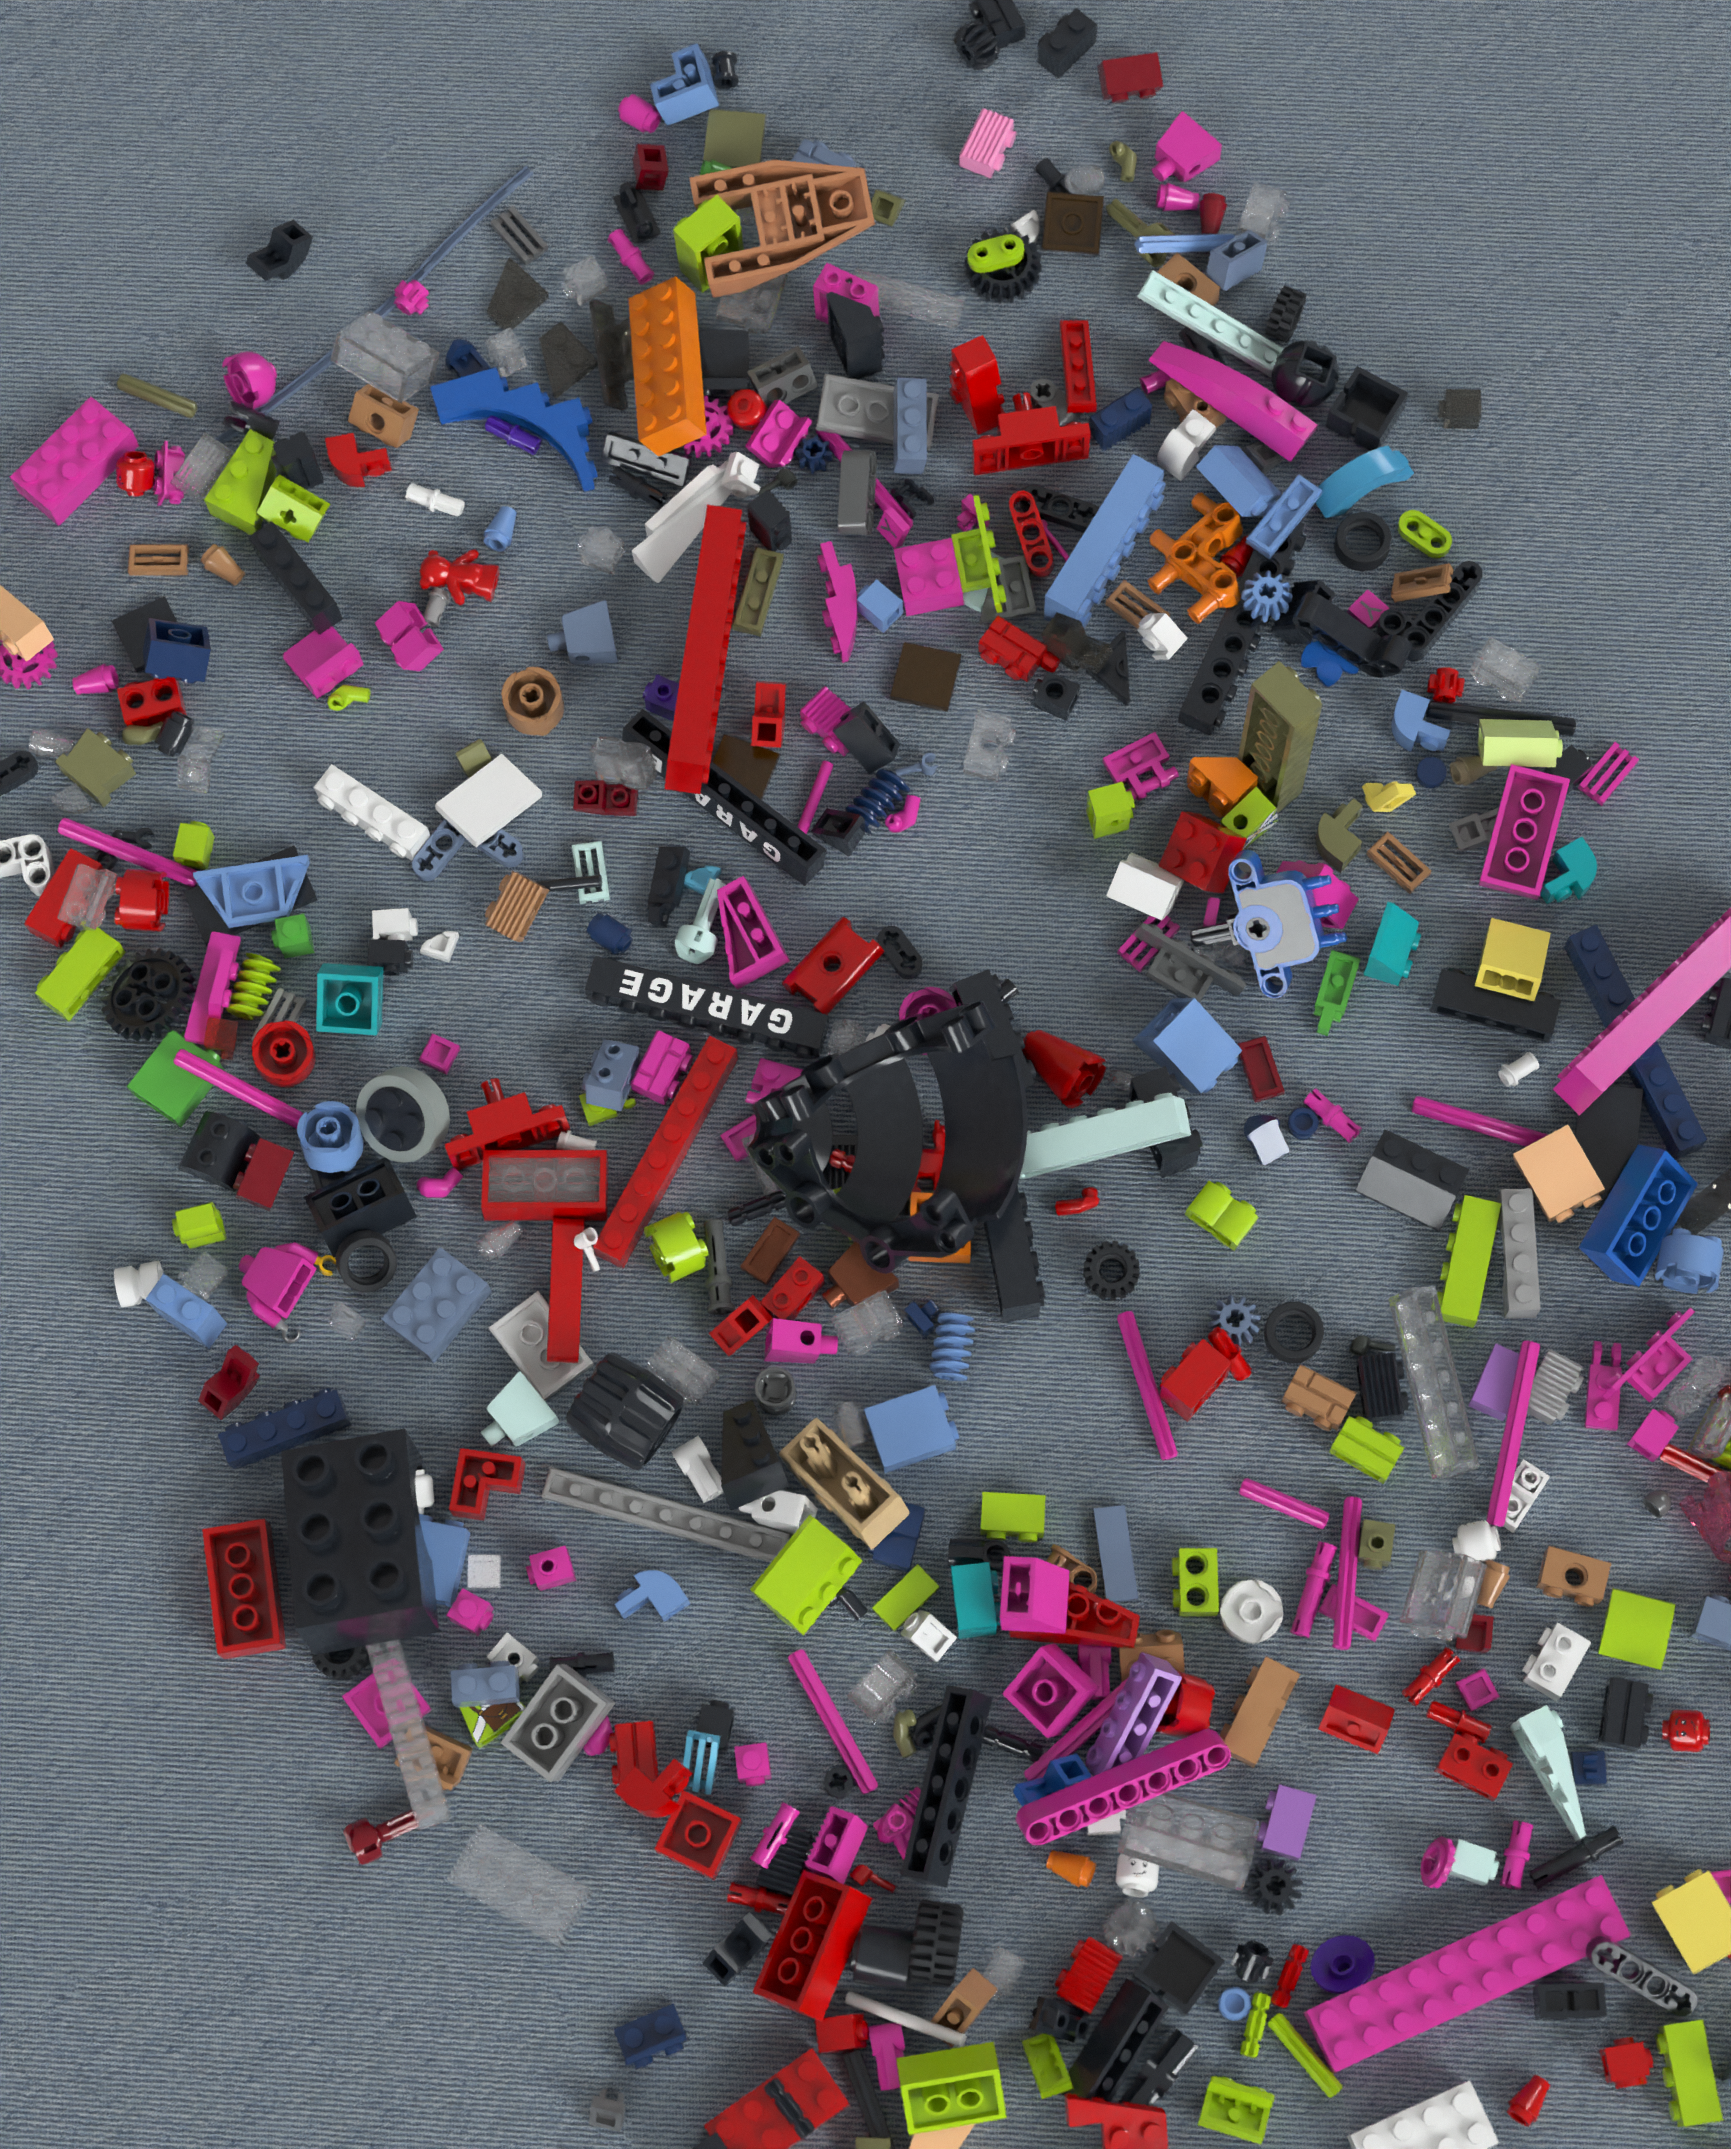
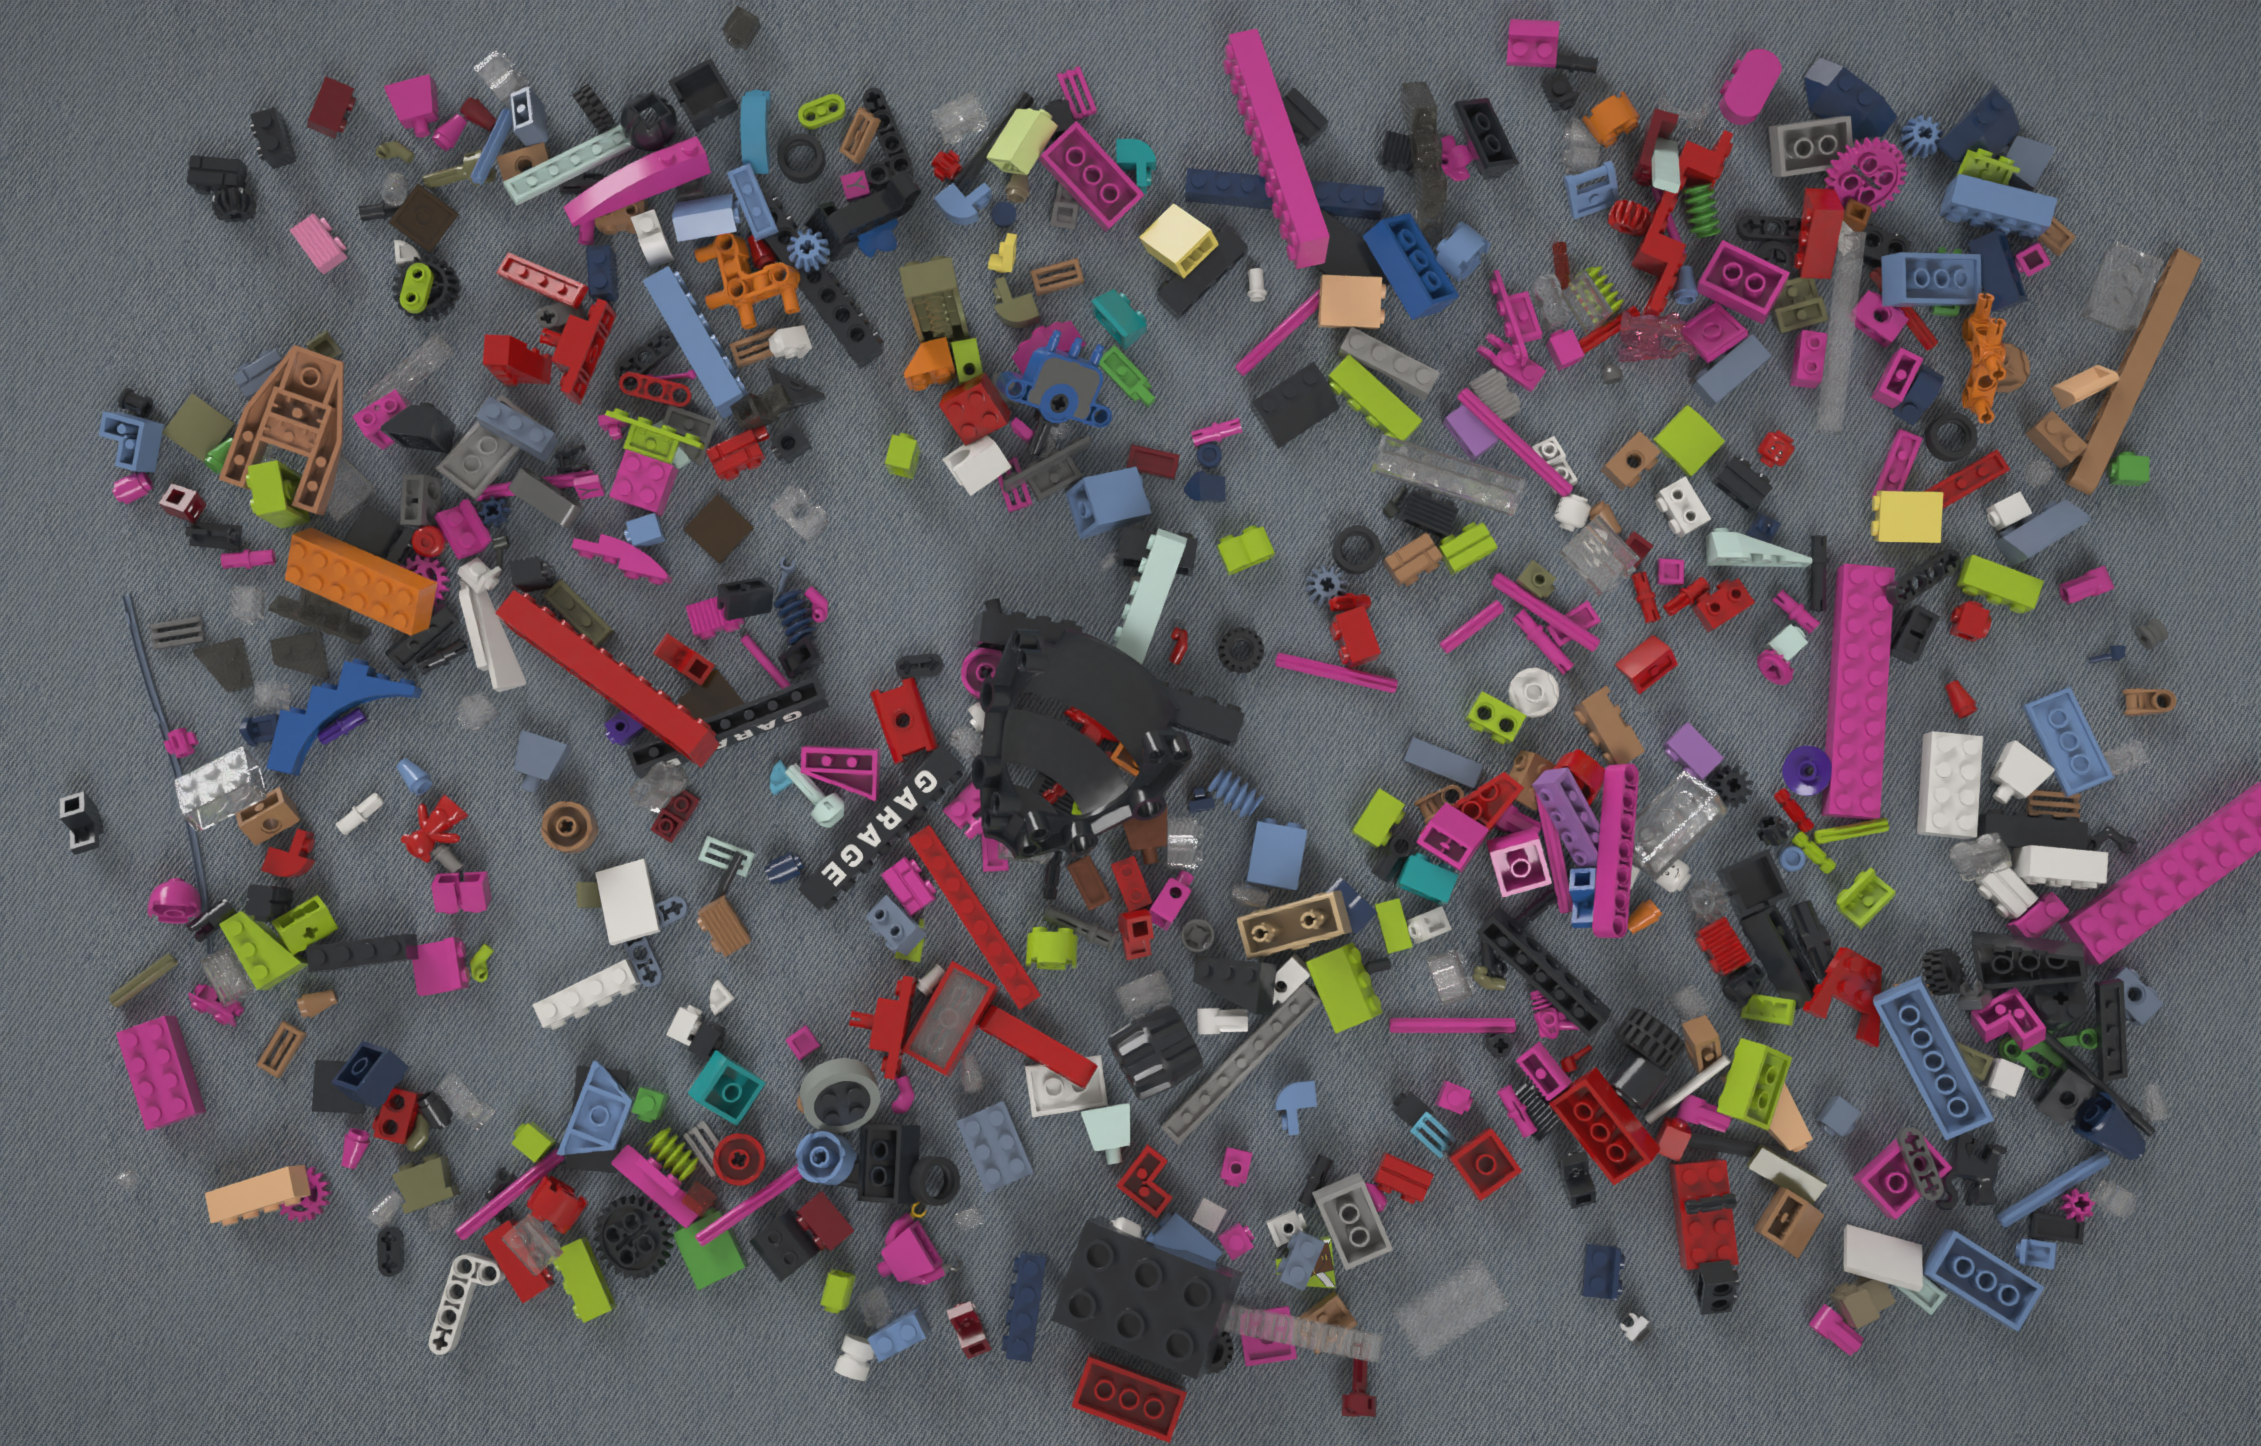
camera: 65 degrees left, 10 degrees up
(135, 473) = (200, 1031): red head -> none
(585, 1241) = (1012, 1011): white hand -> none
(651, 1796) = (1445, 1184): red brick -> none
(667, 884) = (769, 805): black hinge -> none
(758, 1898) = (1548, 1145): red pin -> none
(1064, 1066) = (1074, 598): red cone -> none
(1137, 759) = (872, 414): dark pink plate -> none

